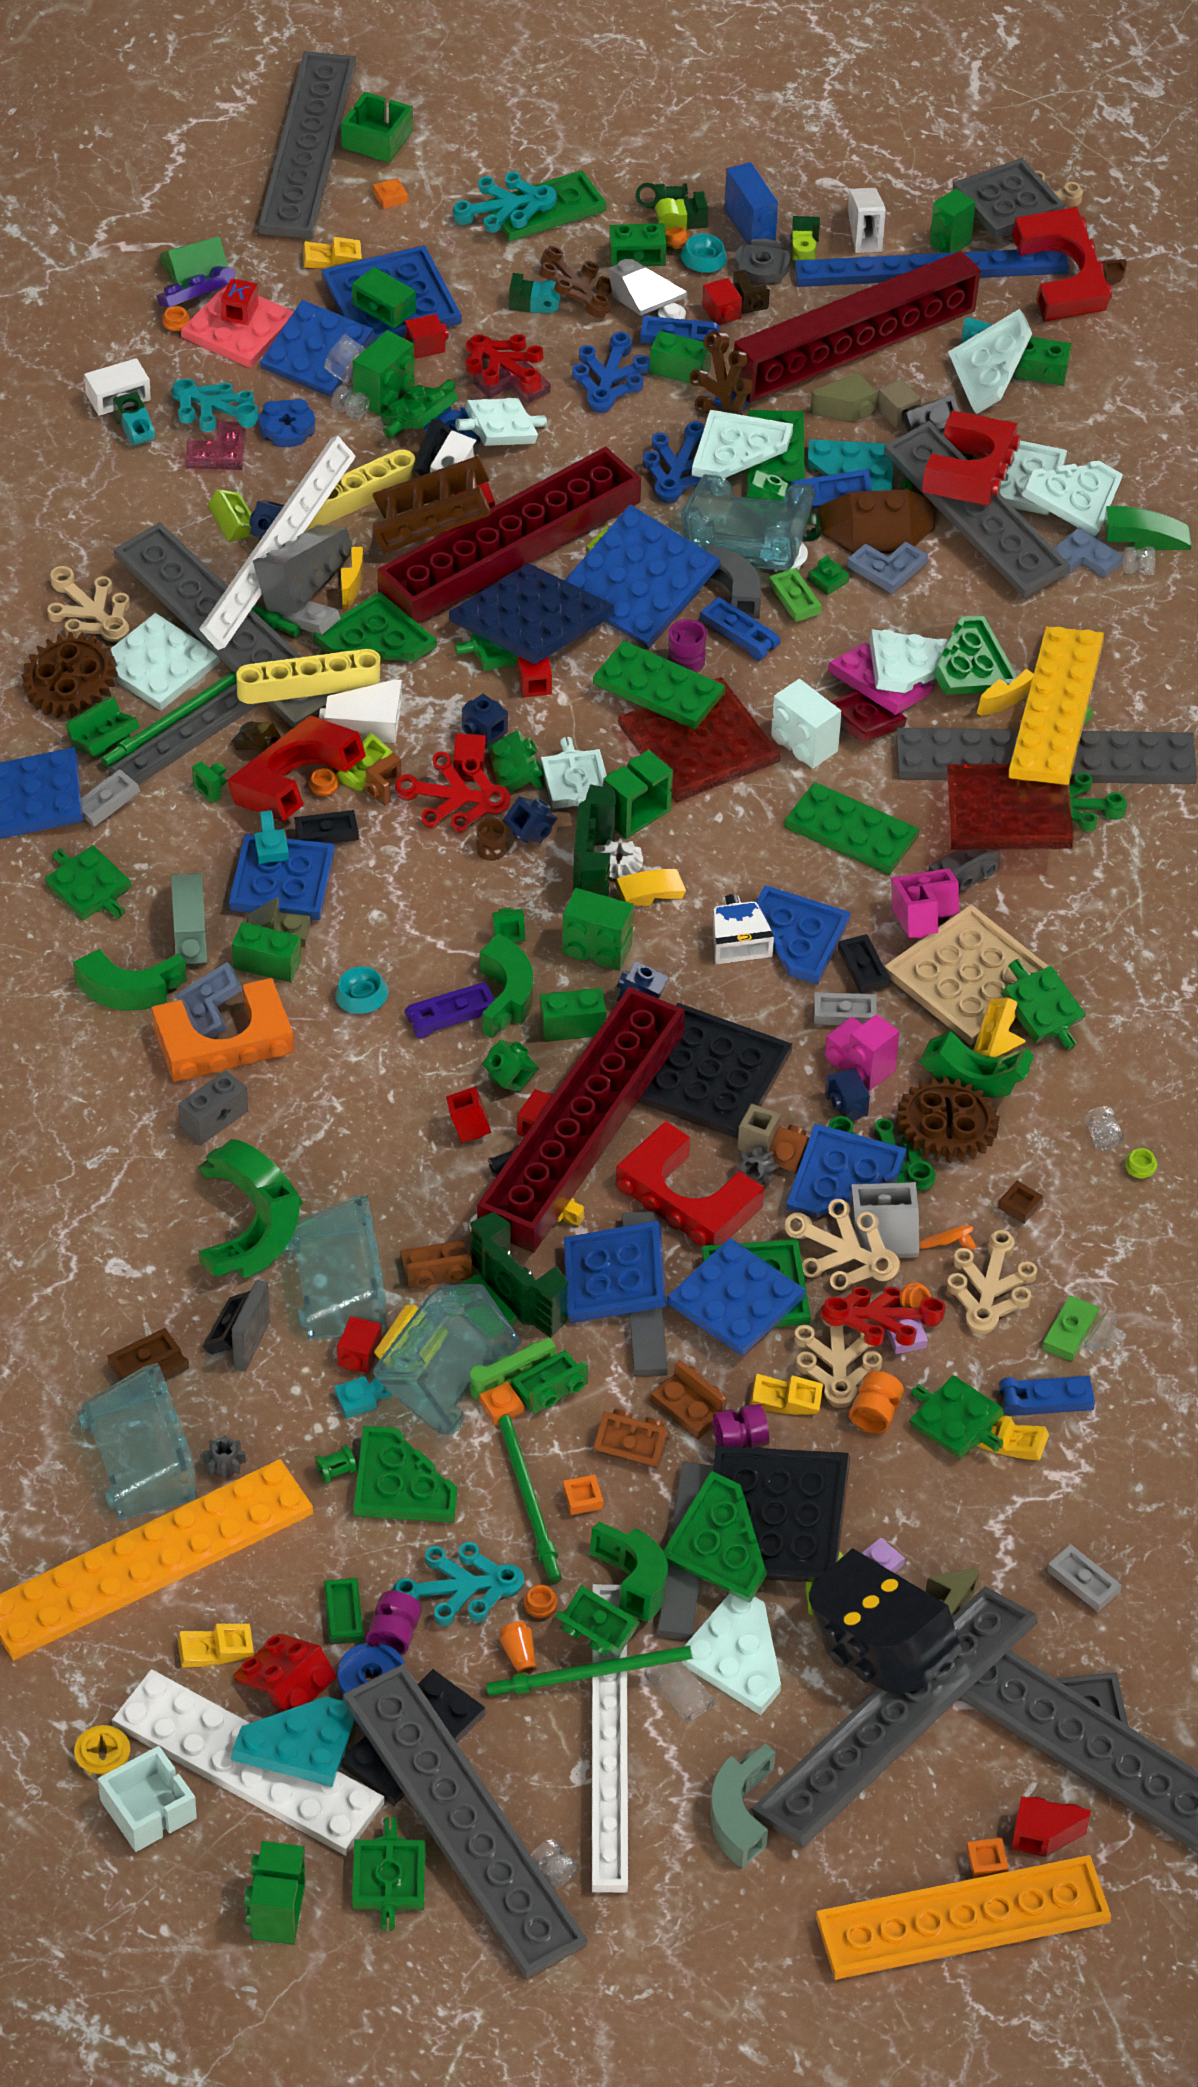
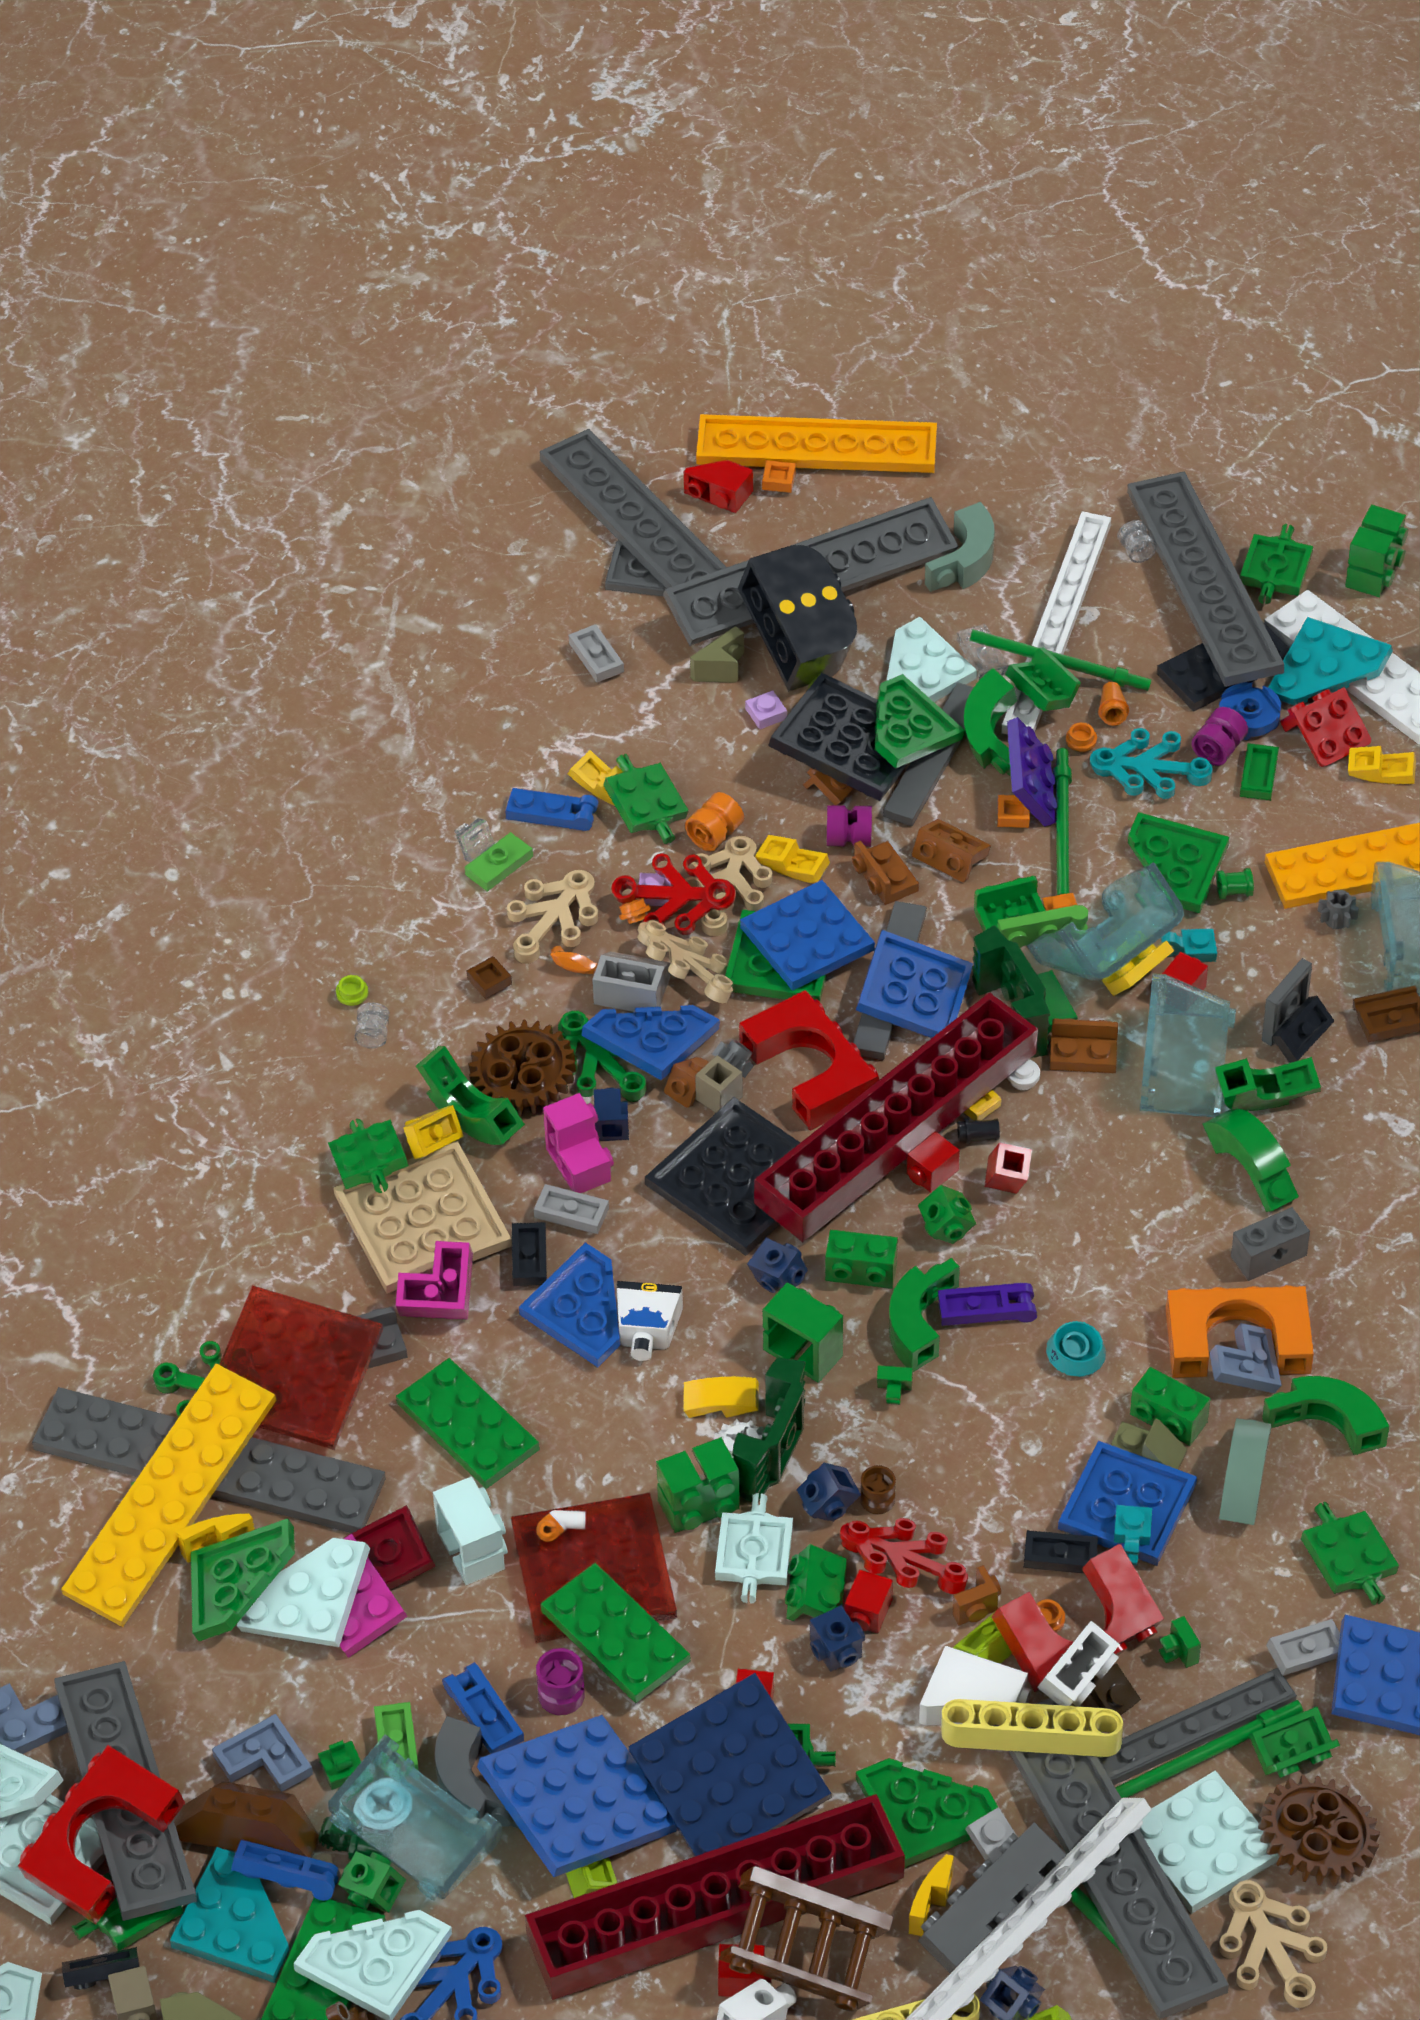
camera: 160 degrees left, 0 degrees up
(281, 697) = (1072, 1674): none -> white brick
(576, 1520) = (1031, 771): none -> dark purple plate
(739, 748) = (558, 1521): none -> arm

